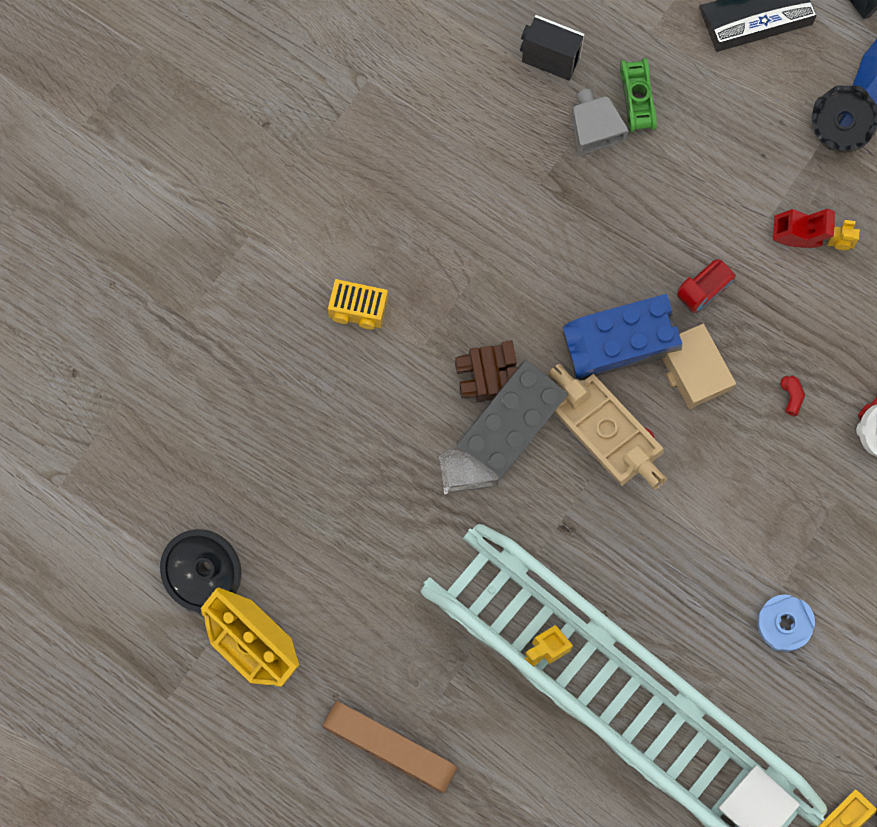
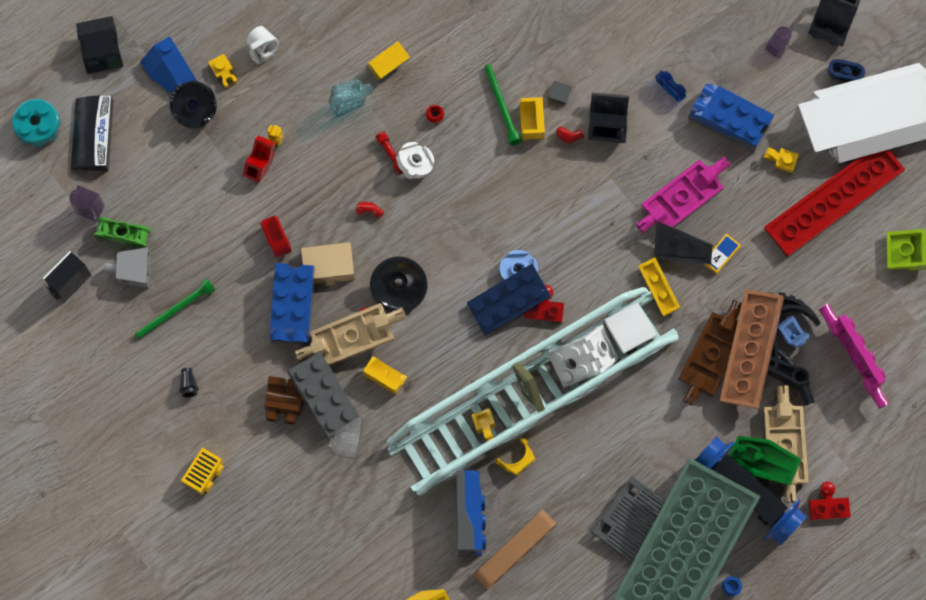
camera: 70 degrees left, 0 degrees up
(415, 666) = (469, 514): none -> piece
(466, 246) = (188, 384): none -> black cone
(513, 719) = (518, 467): none -> yellow helmet
(570, 492) = (384, 375): none -> yellow hinge
(604, 223) = (205, 288): none -> green piece
(616, 685) = (528, 387): none -> olive tile
(658, 36) = (86, 203): none -> clear purple brick
(685, 460) = (392, 295): none -> black dish
(694, 755) = (591, 353): none -> white bracket
(736, 623) = (509, 299): none -> dark blue plate
(742, 677) = (547, 310): none -> red plate

